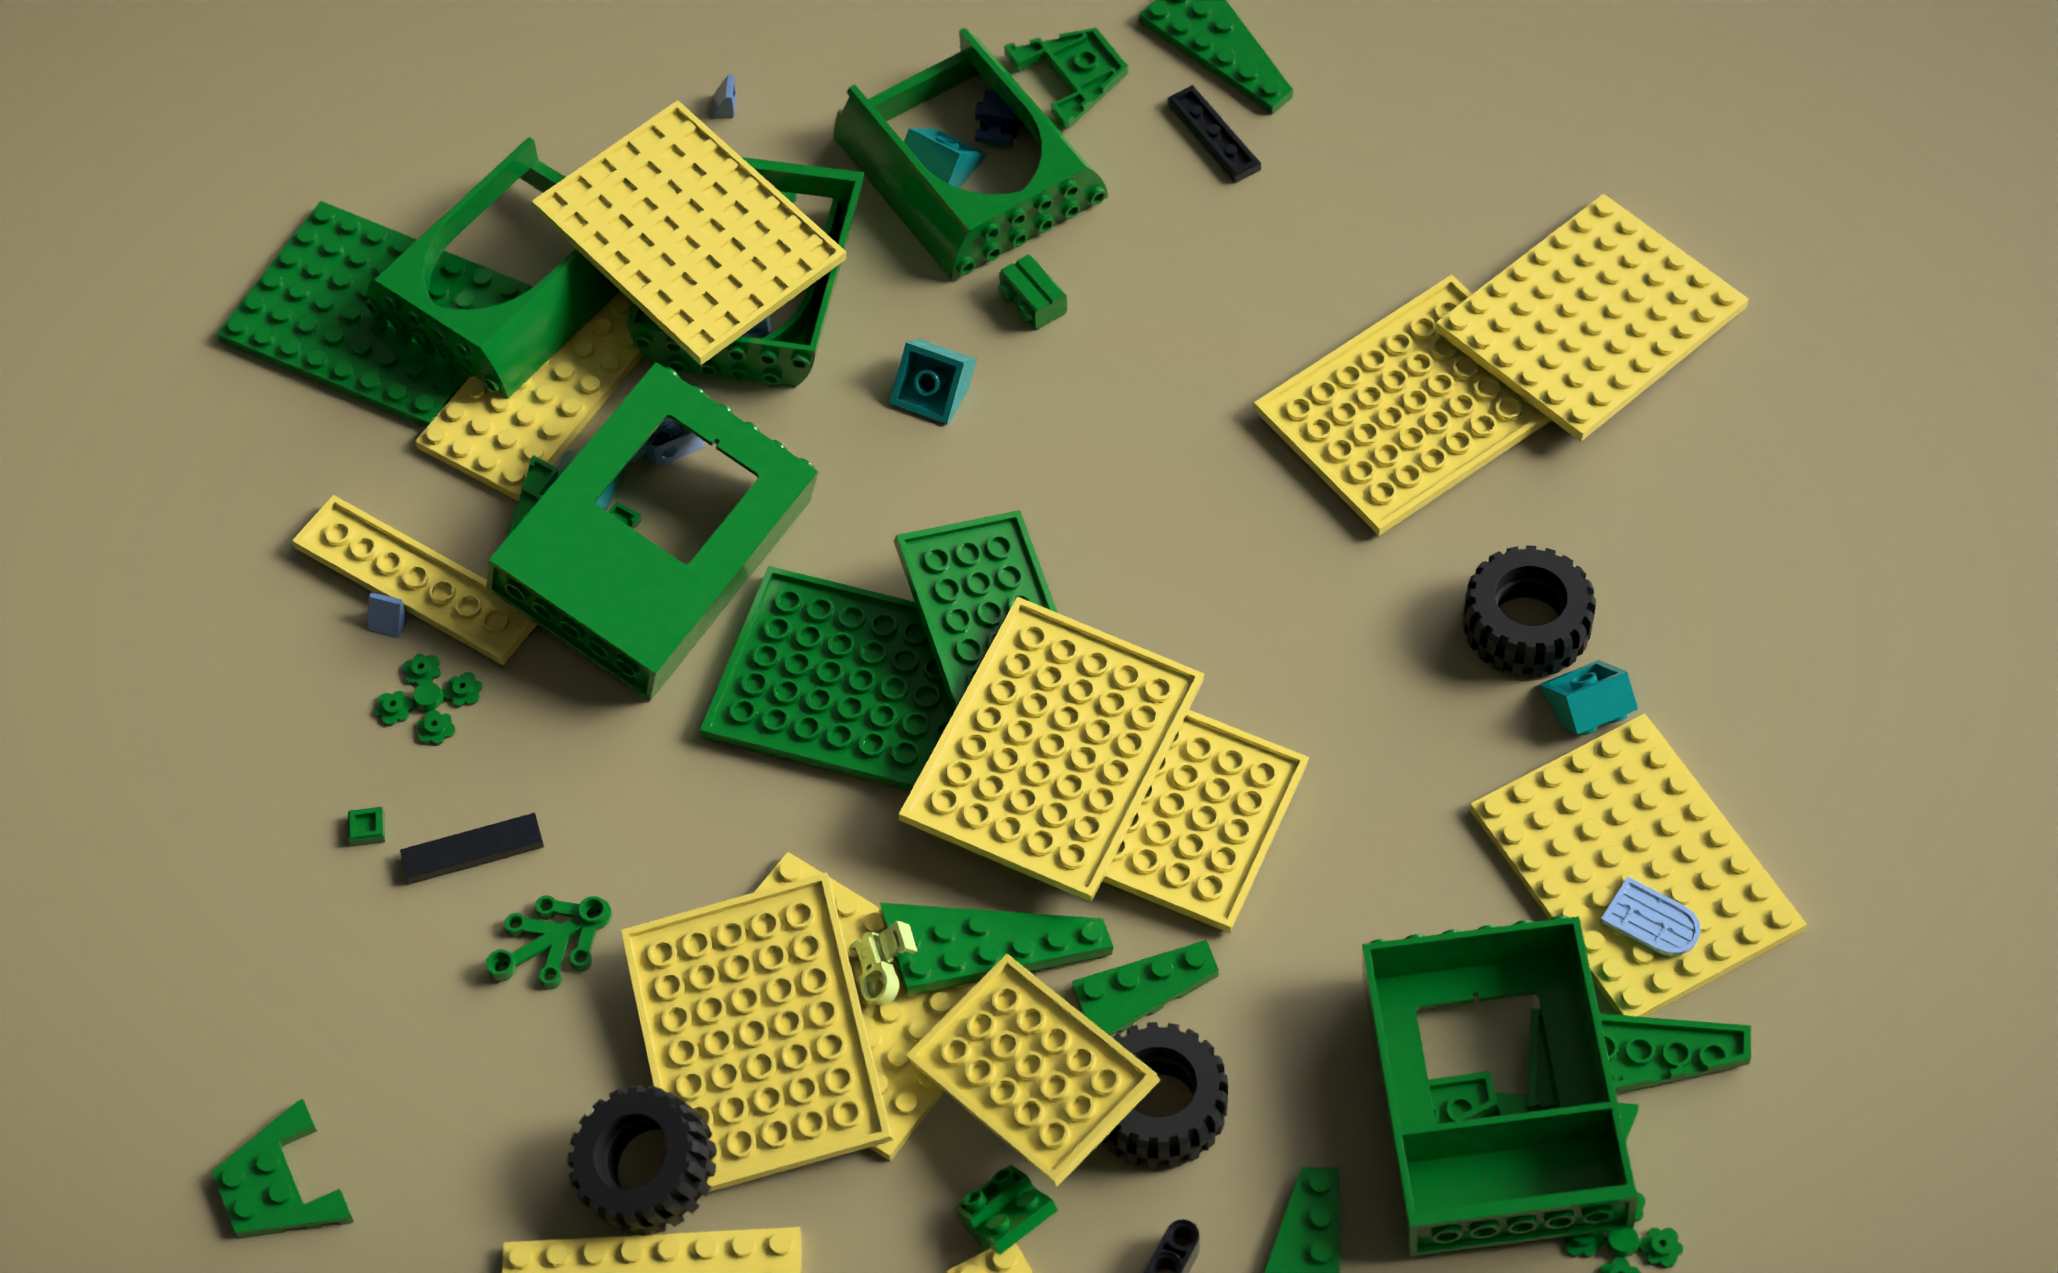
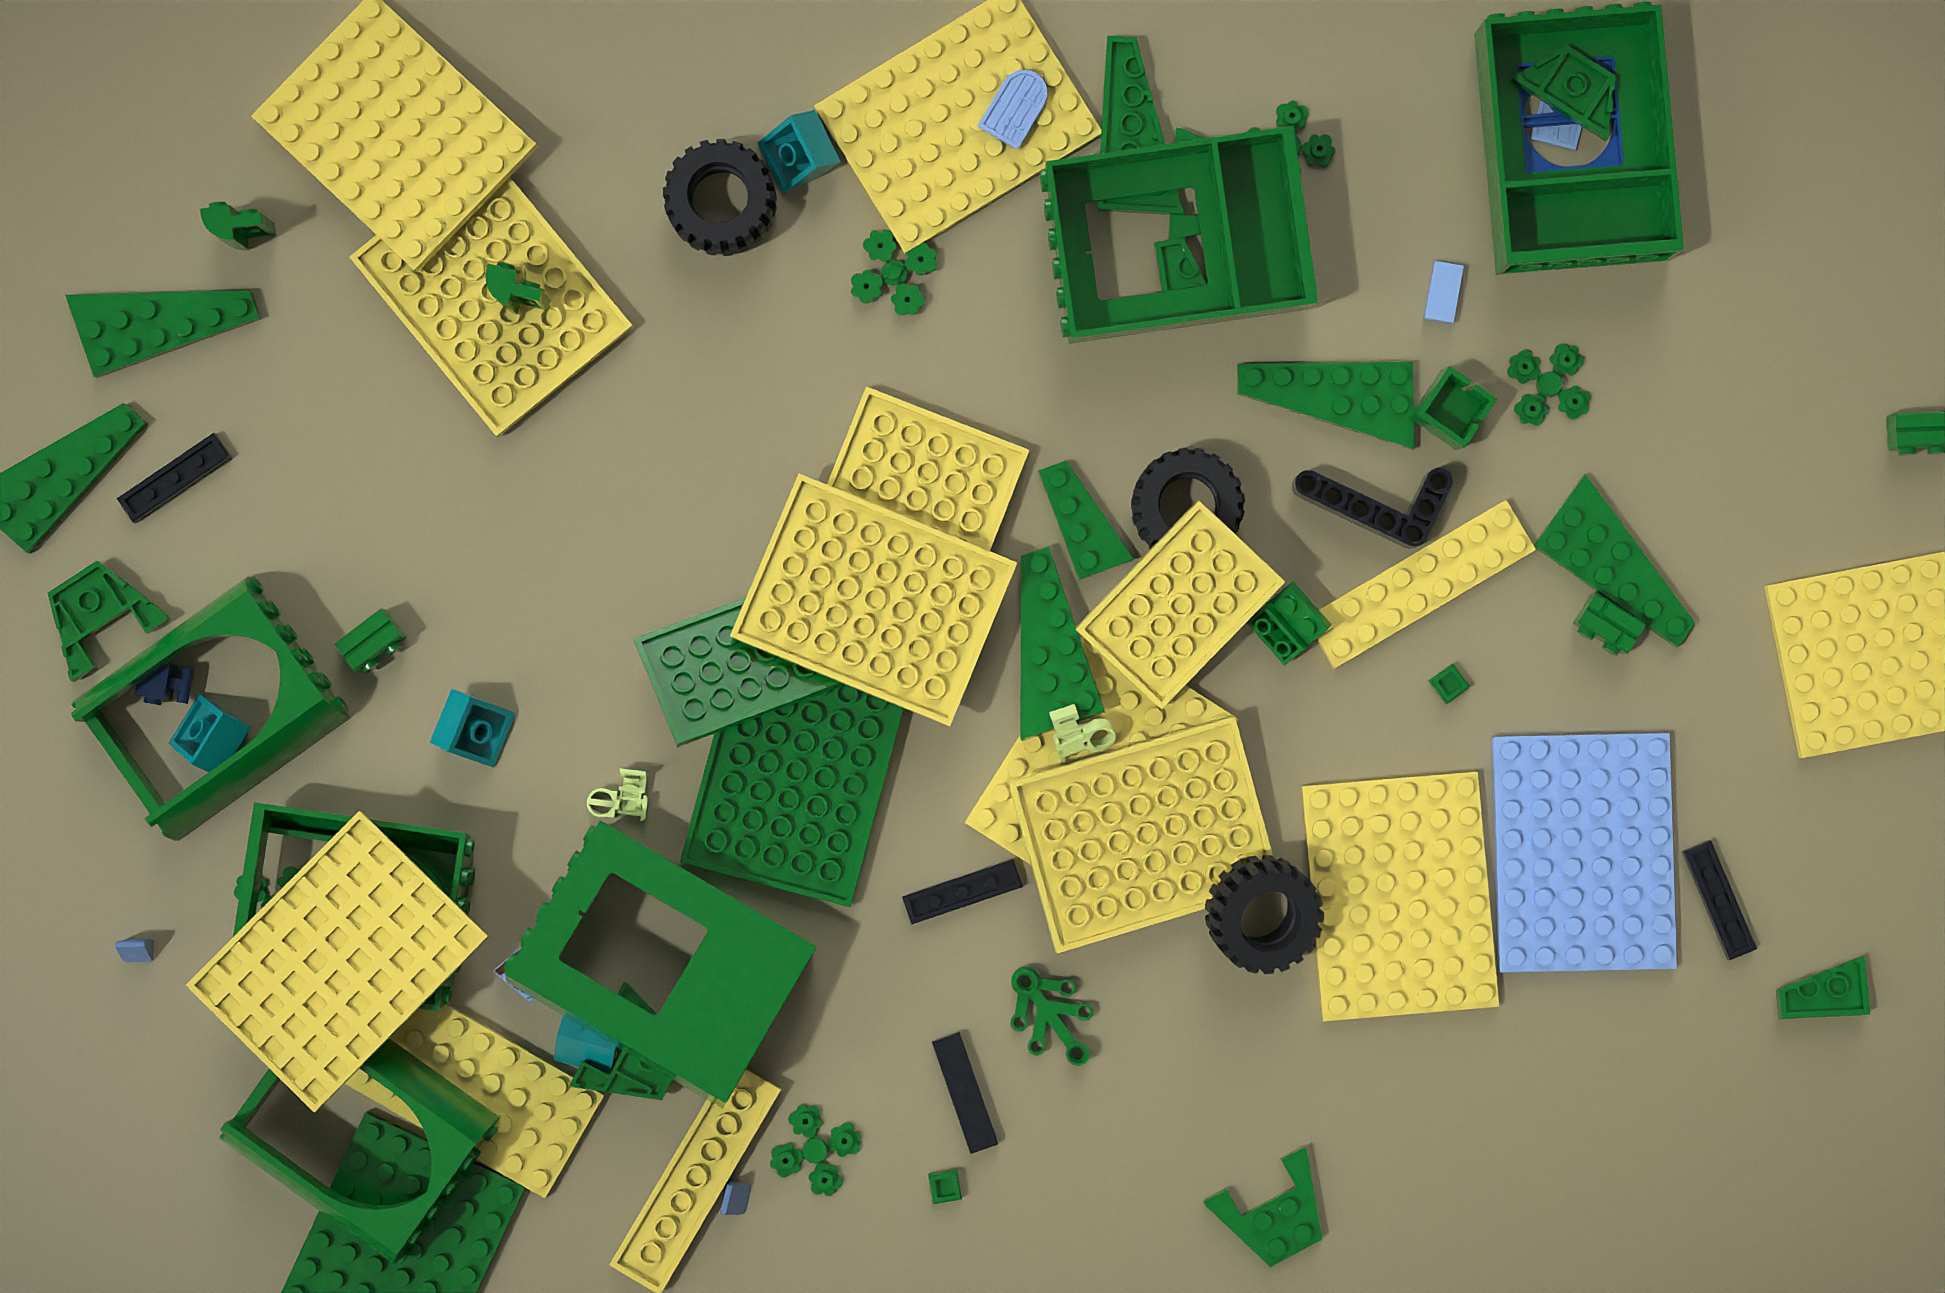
camera: 95 degrees left, 30 degrees up
(705, 846) = (962, 891): none -> black tile
(848, 521) = (629, 796): none -> yellowish green piece
(1375, 109) = (141, 326): none -> green wing
(1415, 403) = (512, 289): none -> green brick
(1446, 793) = (893, 273): none -> green plant
(1481, 171) = (234, 226): none -> green brick

